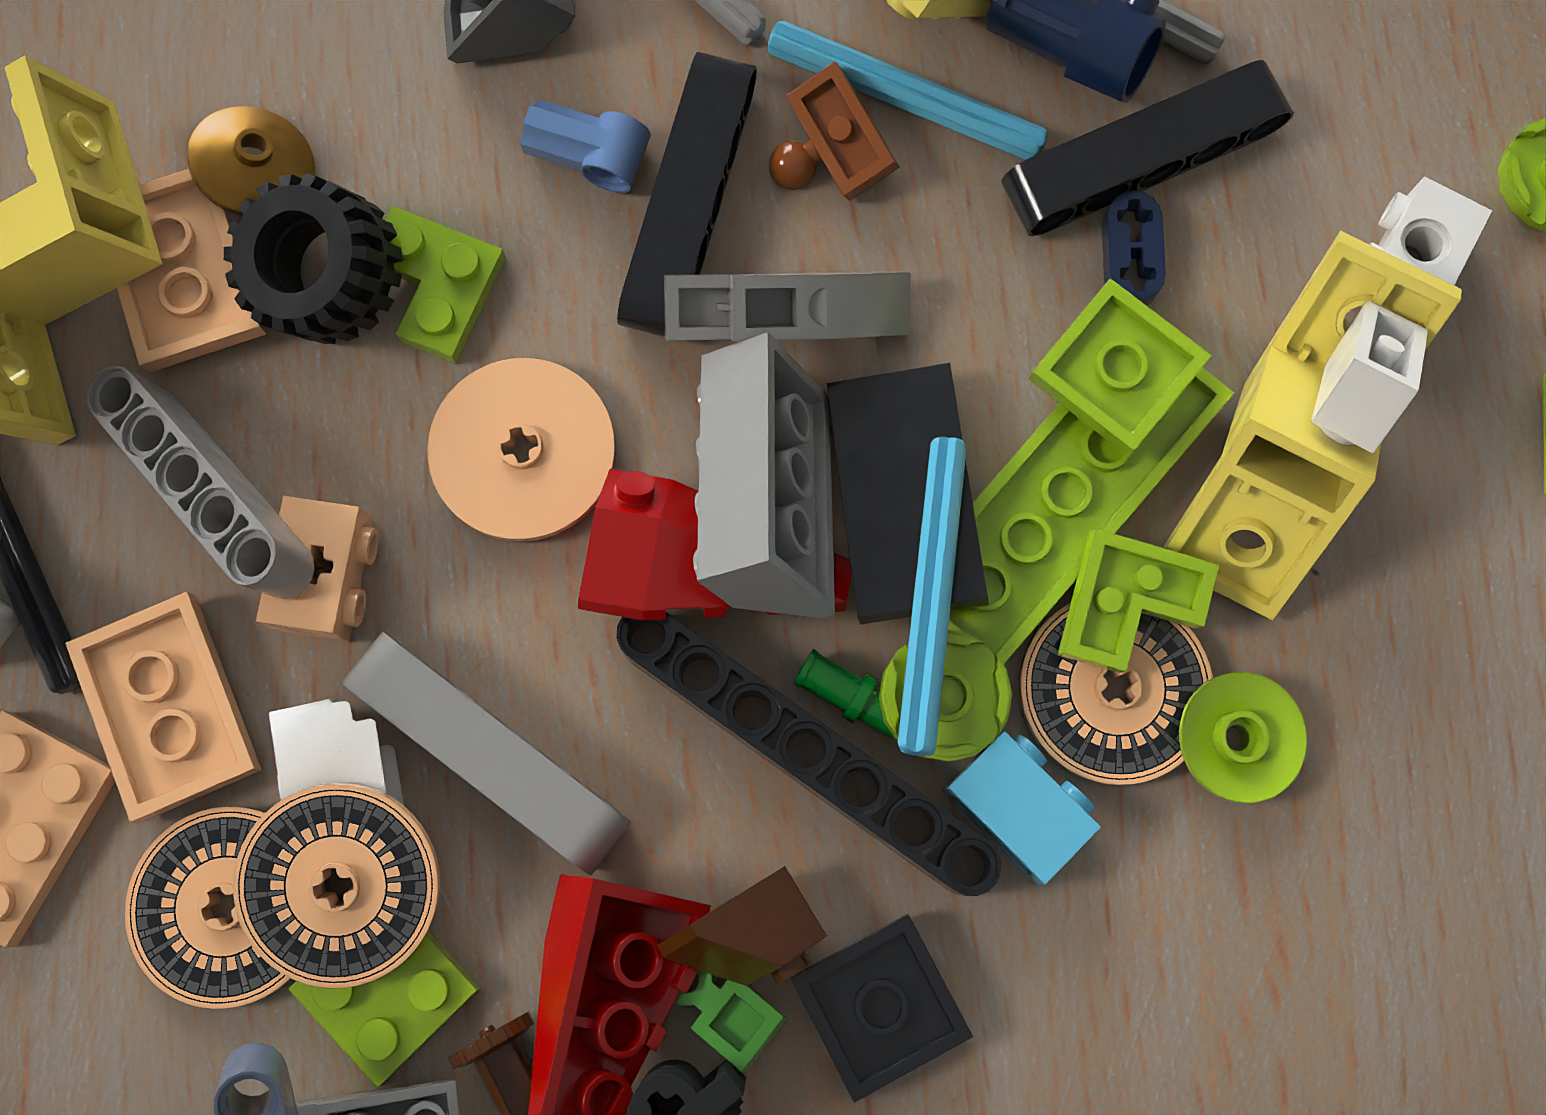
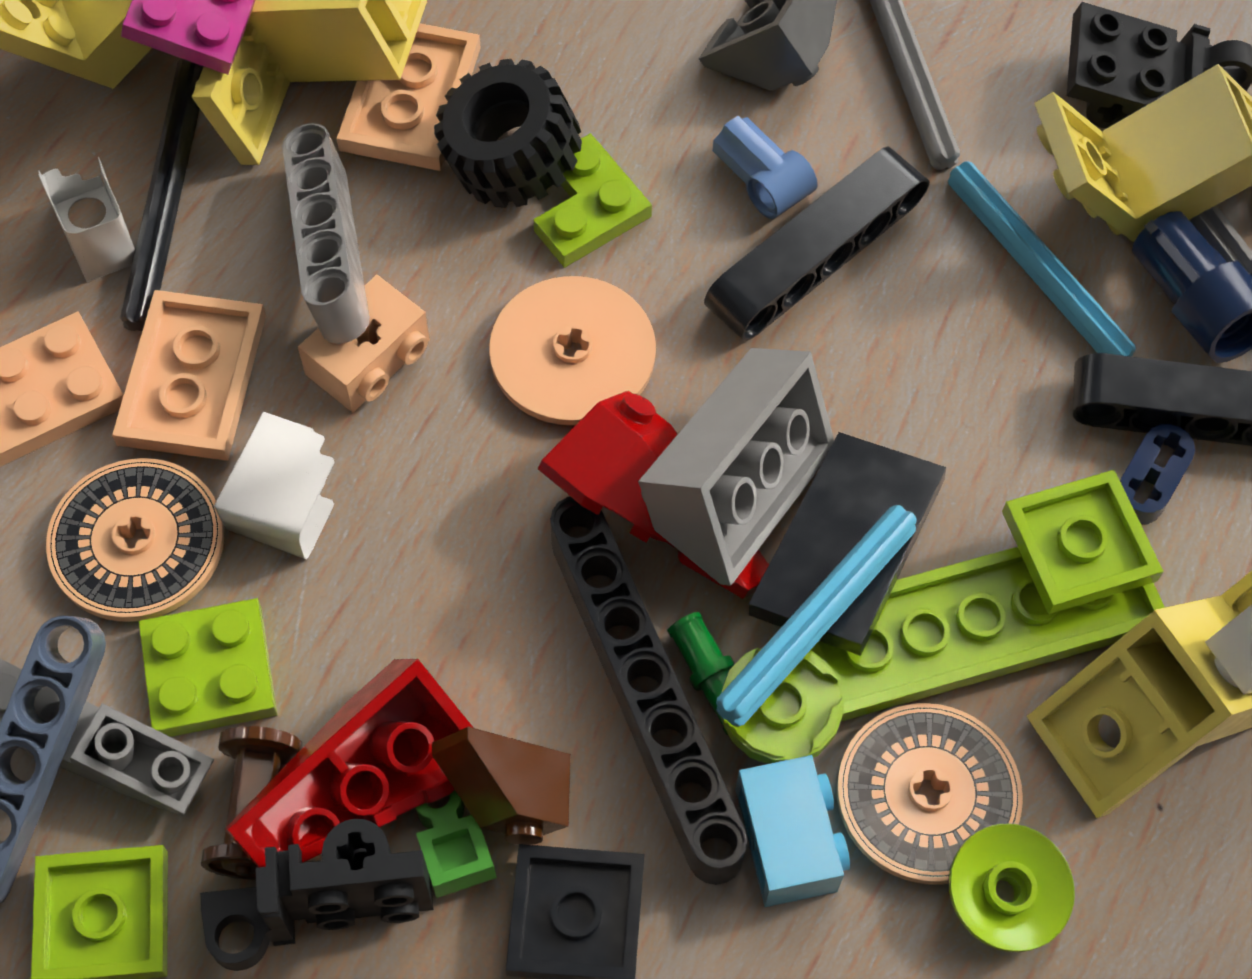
camera: 30 degrees right, 15 degrees down
(228, 172) = (490, 36): pearl gold dish -> none
(310, 931) = (247, 600): piece -> none
(487, 753) = (401, 543): light grey beam -> none
(787, 306) = (845, 353): light grey slope -> none
(838, 134) = (964, 263): dark orange plate -> none
(1119, 583) = (986, 703): lime plate -> none

